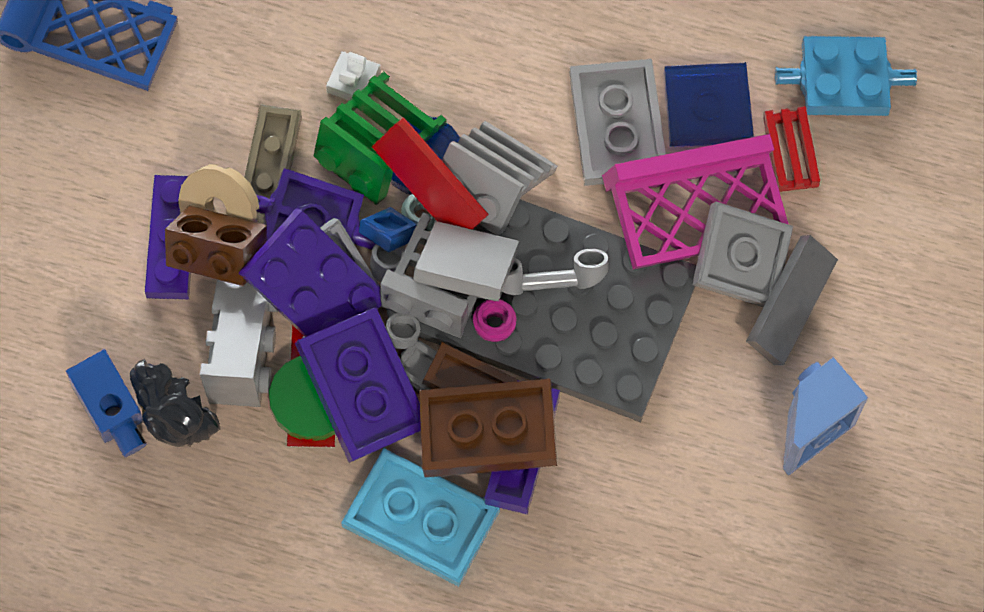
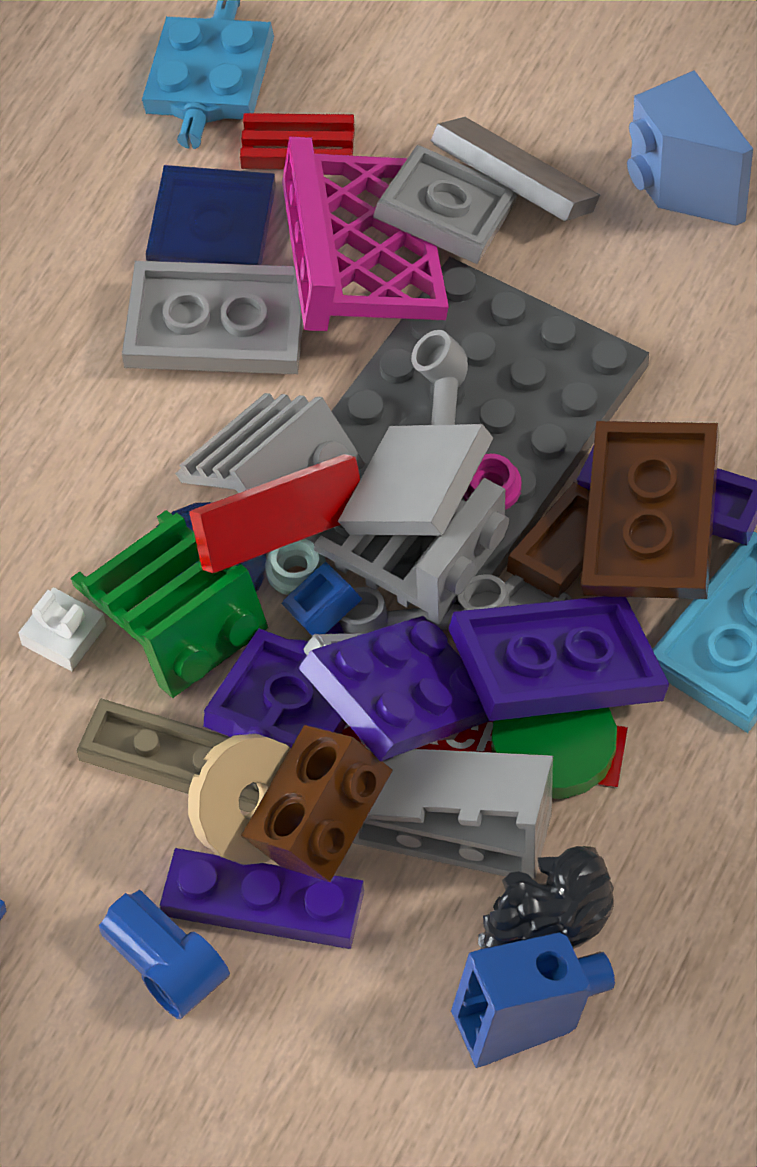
camera: 75 degrees left, 10 degrees down
(113, 191) = (173, 965): none -> blue piece

